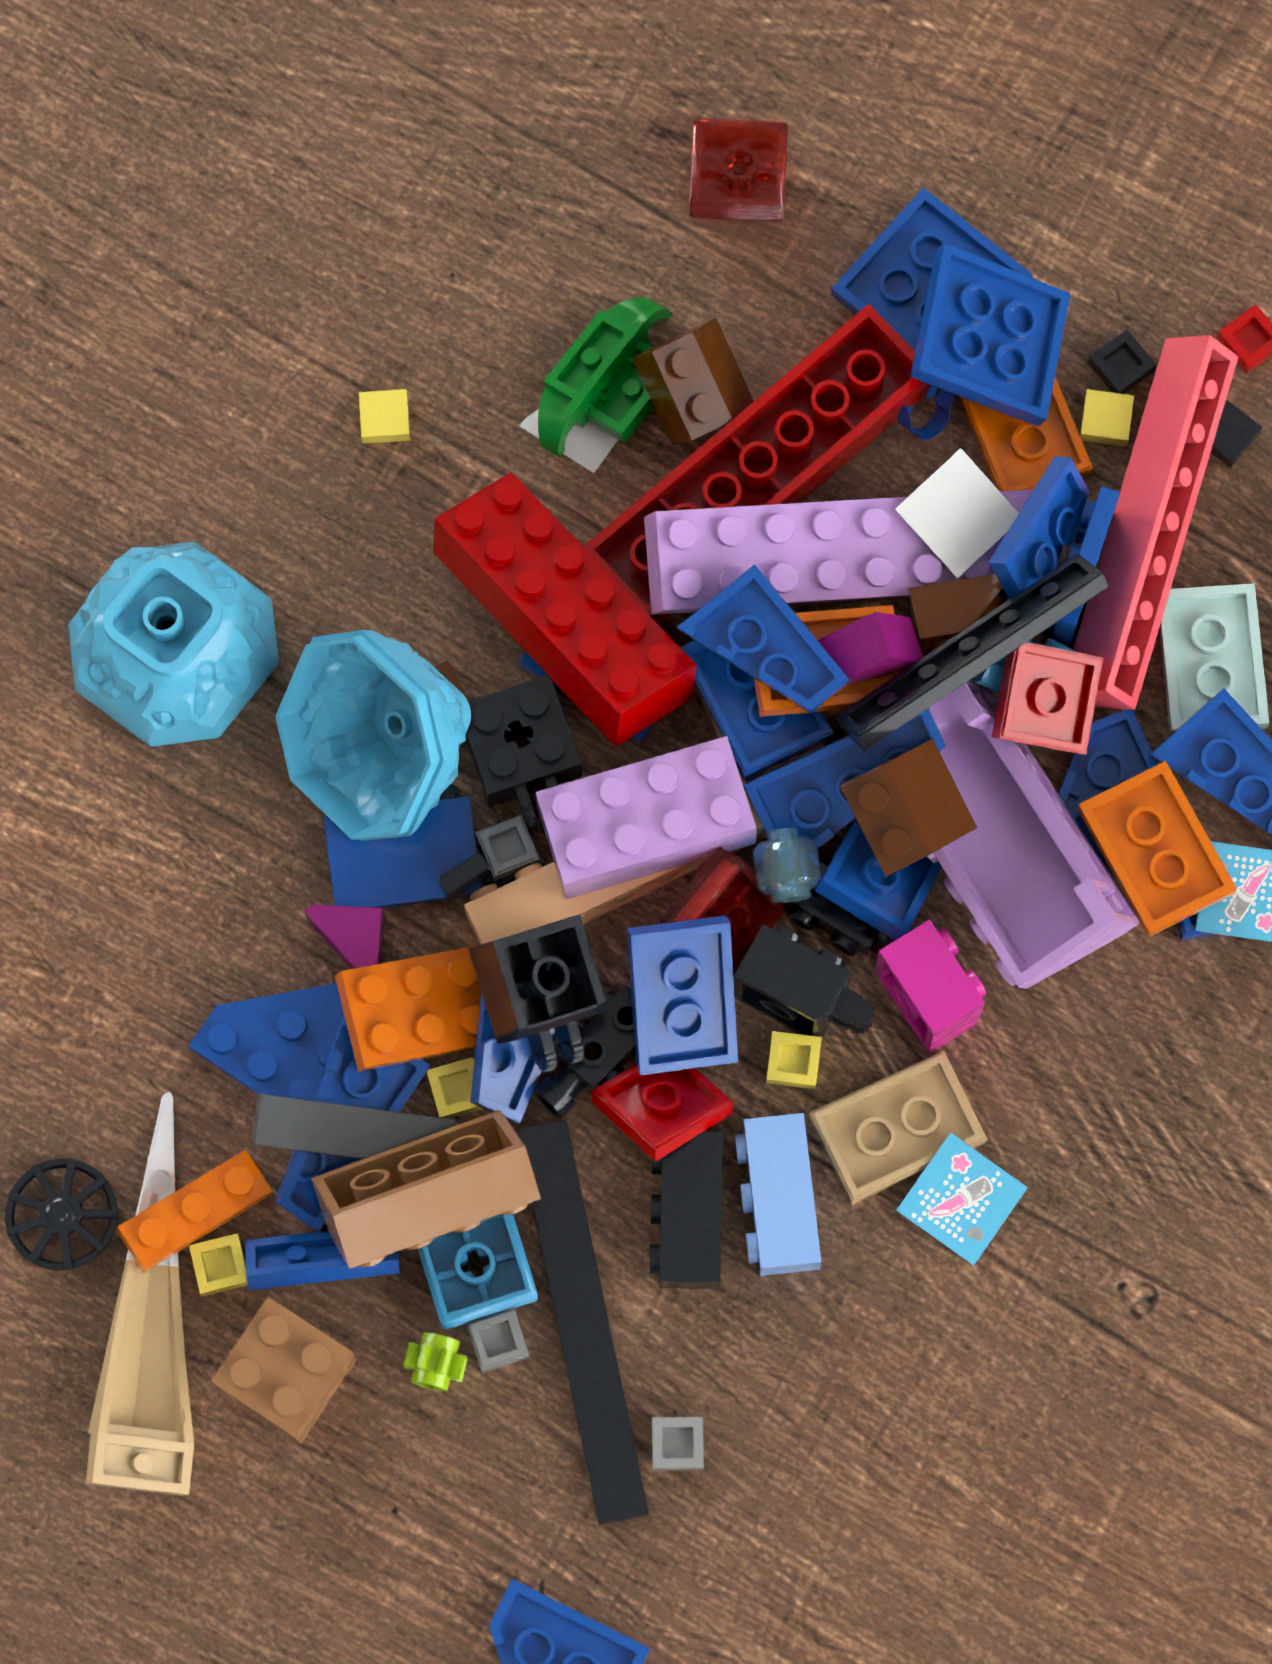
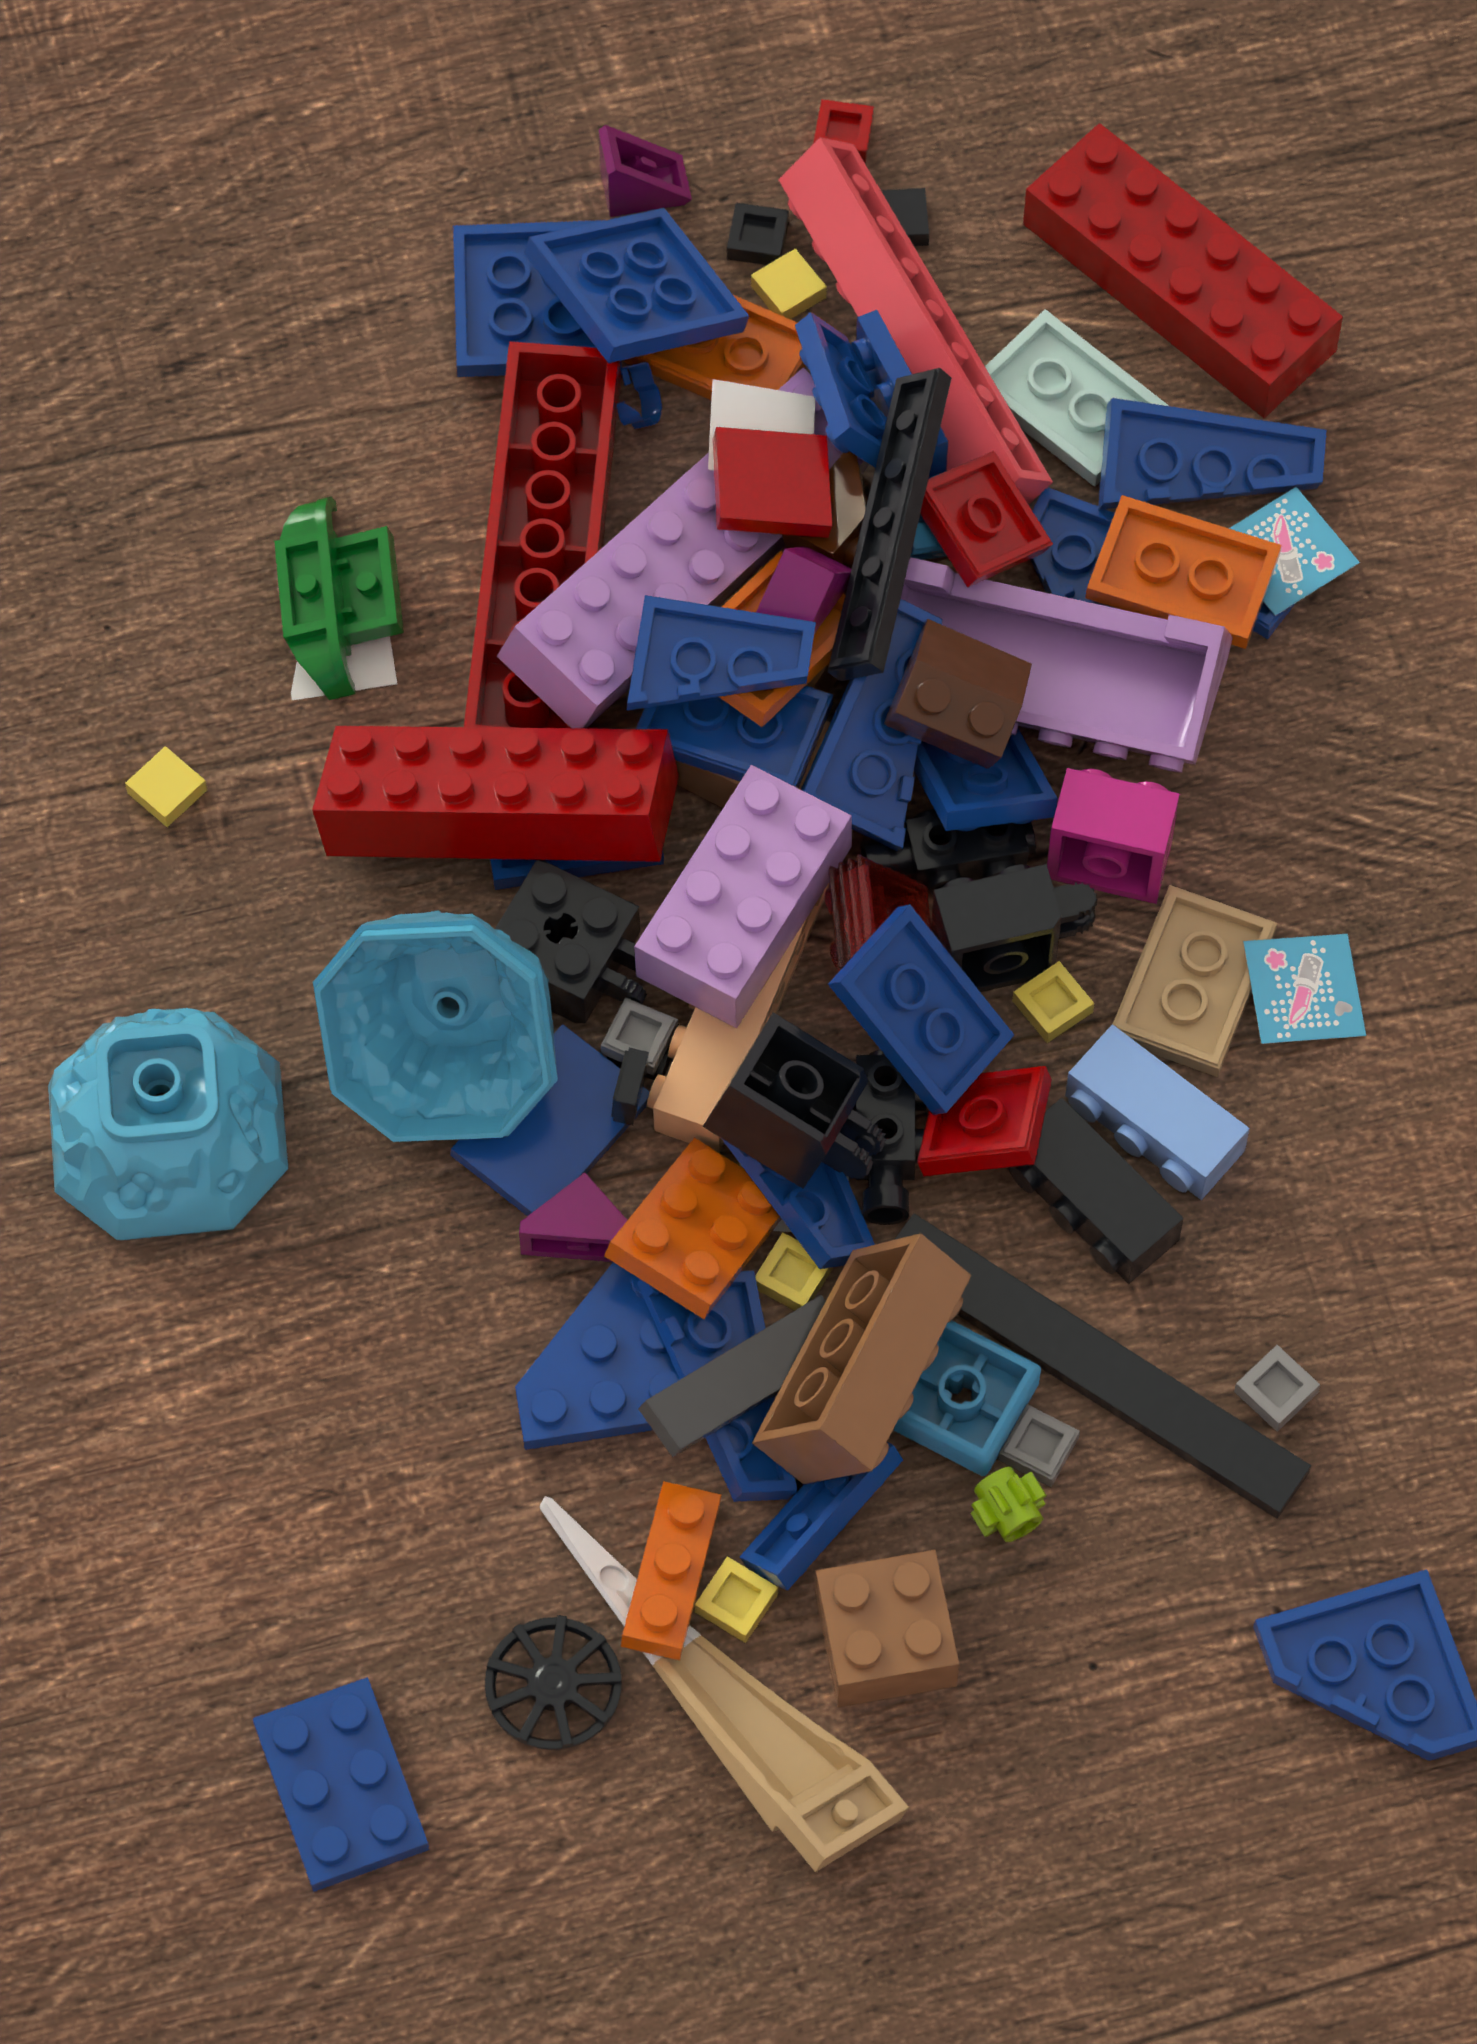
camera: 45 degrees left, 10 degrees down
(694, 382) = (417, 533): reddish brown slope -> none
(725, 143) = (309, 334): clear red brick -> none
(786, 866) = (902, 832): clear light blue head -> none
(926, 555) = (772, 482): none -> red tile
(1082, 255) = (640, 174): none -> magenta slope

